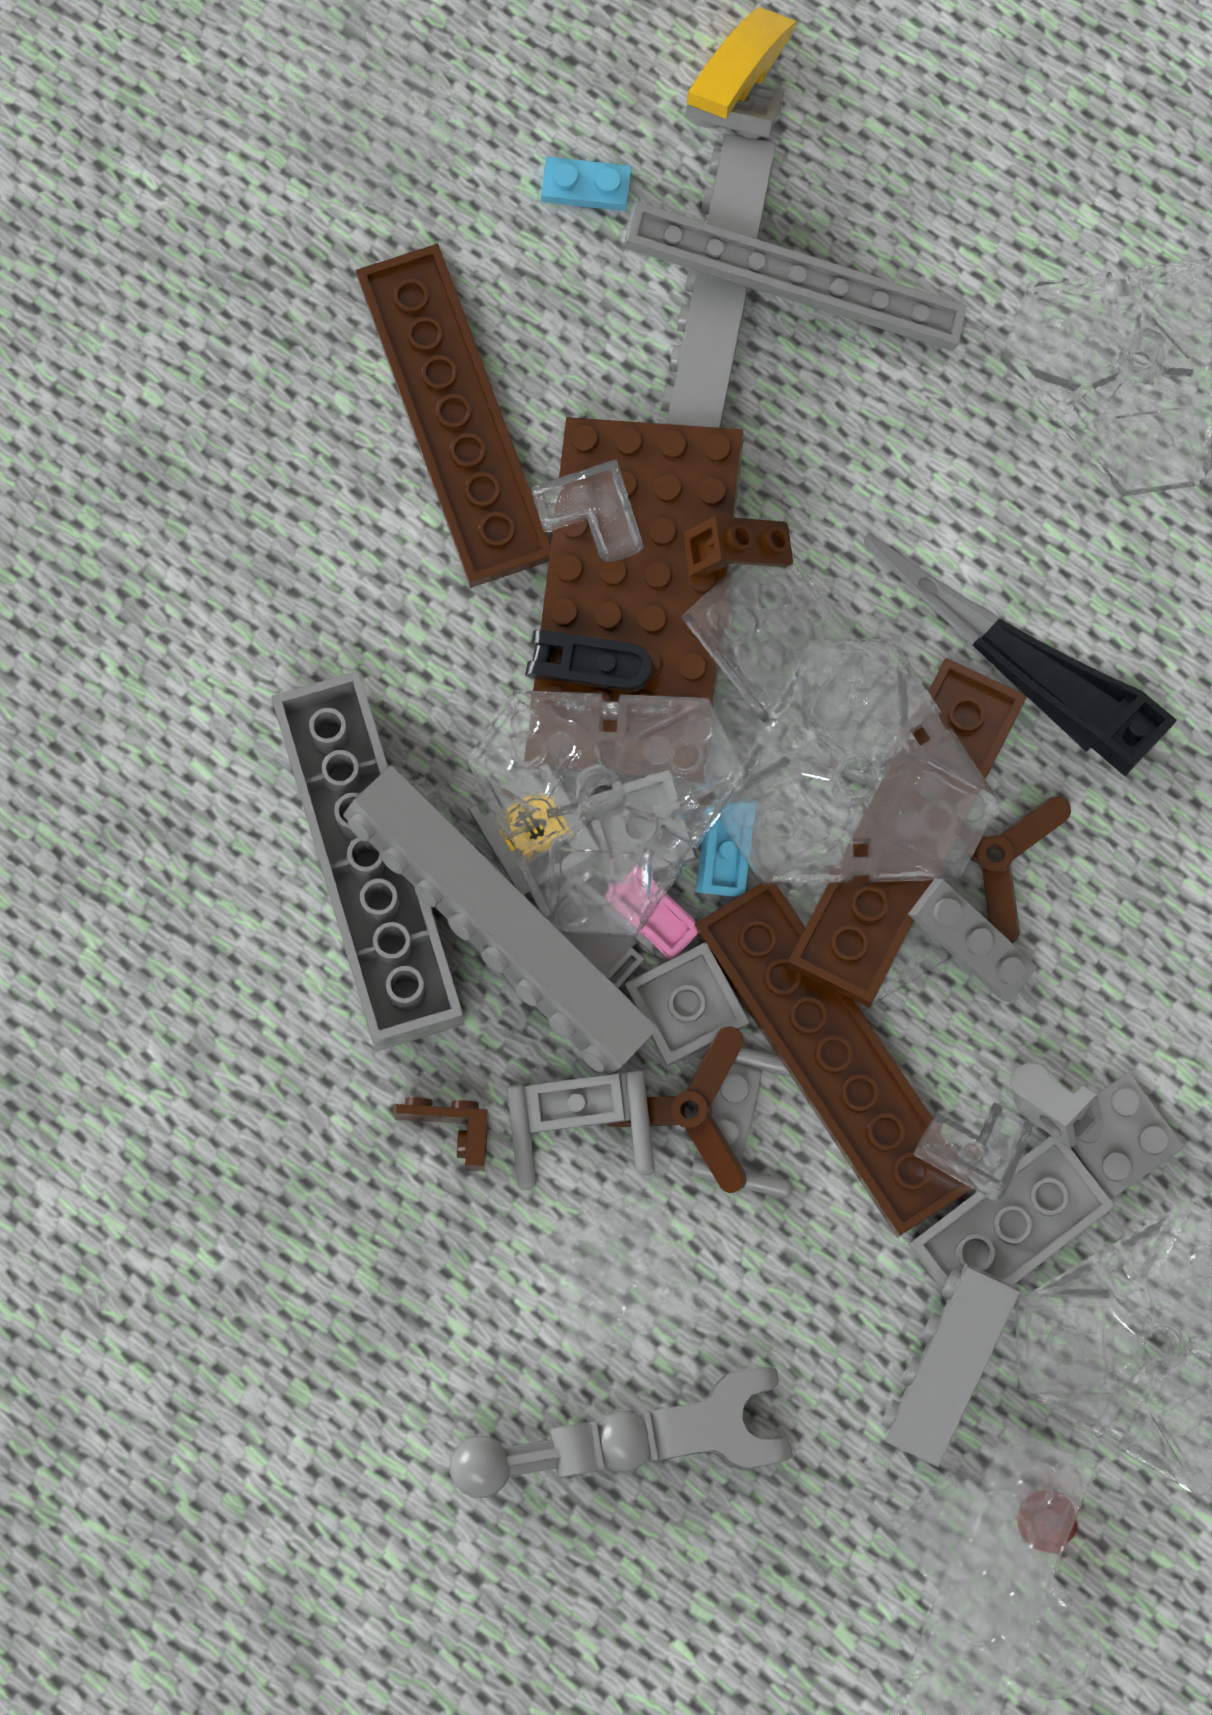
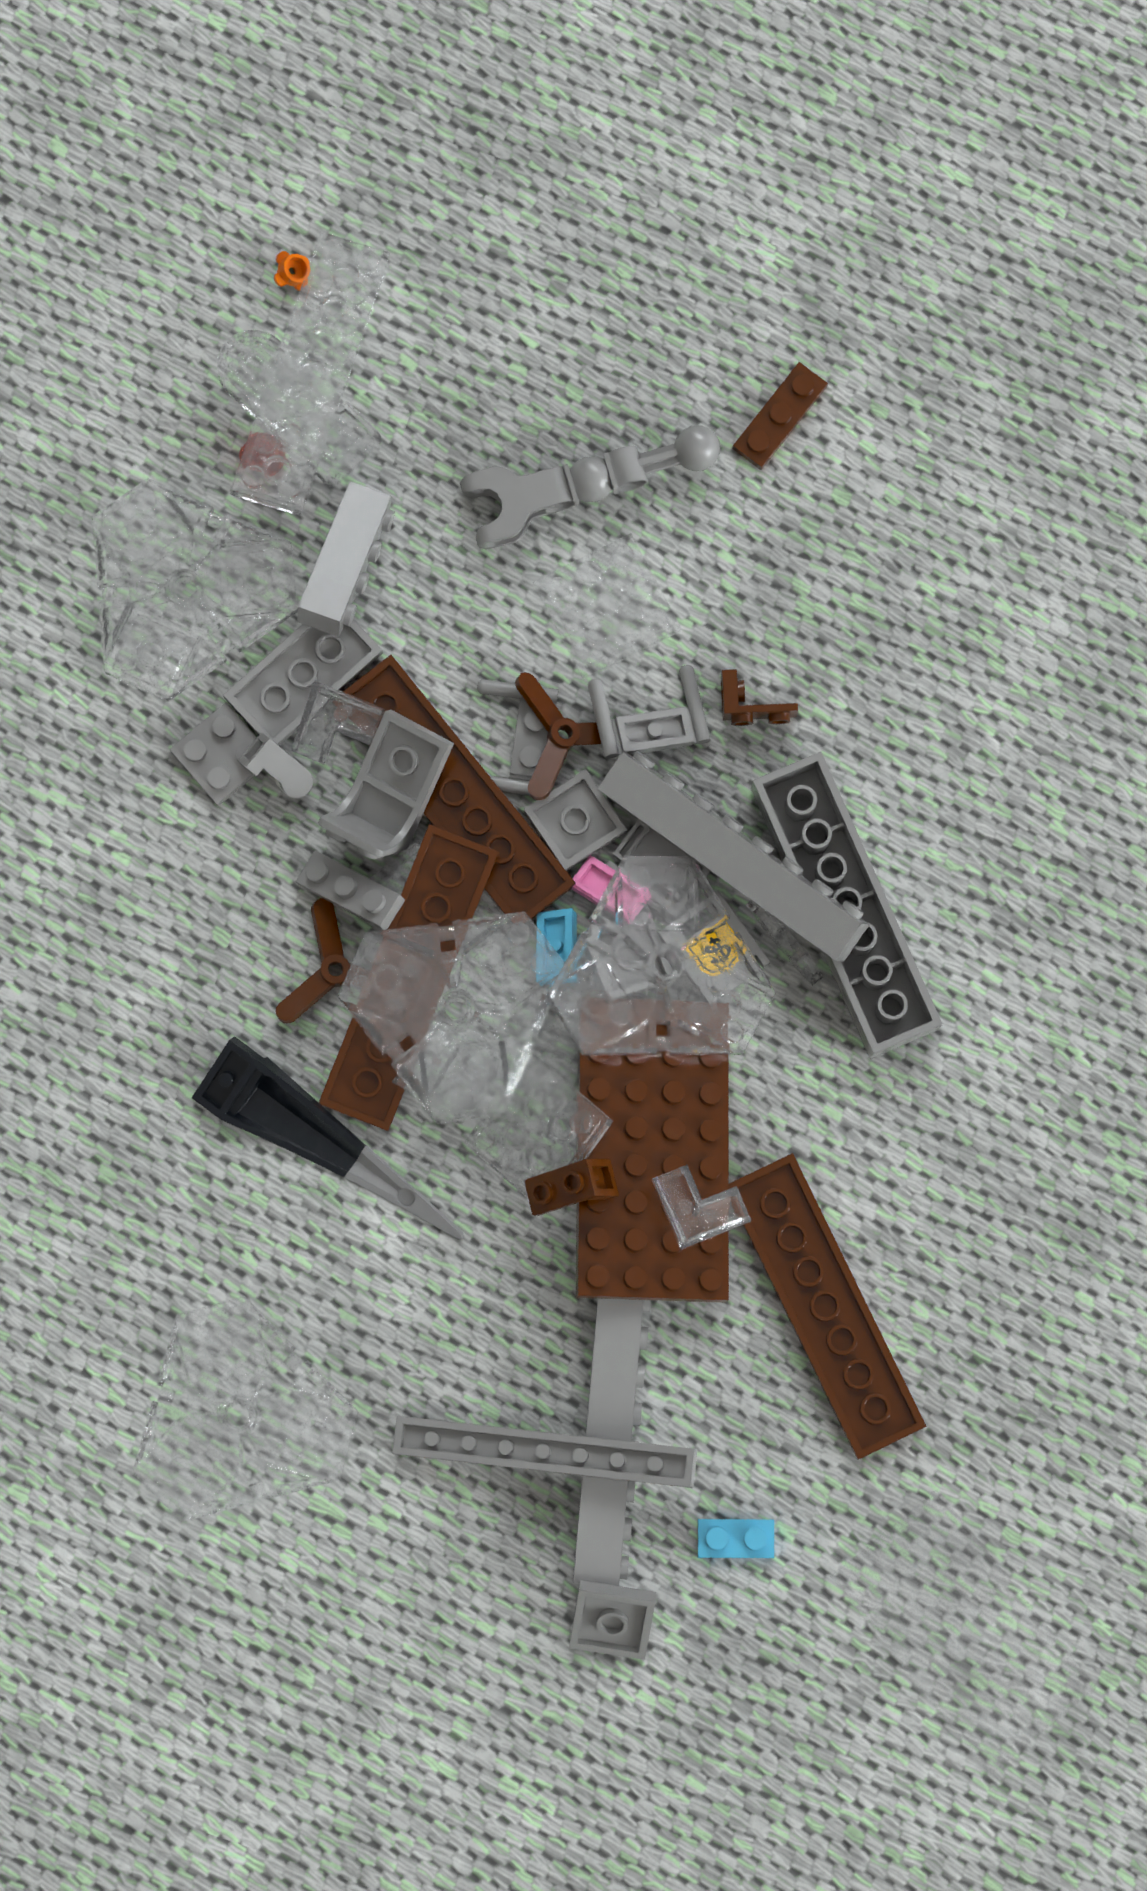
camera: 175 degrees right, 5 degrees up
(364, 1508) = (780, 416): none -> reddish brown plate
(590, 661) = (684, 1082): black plate -> none
(741, 62) = (610, 1659): yellow slope -> none
(920, 1050) = (390, 788): none -> light grey bracket

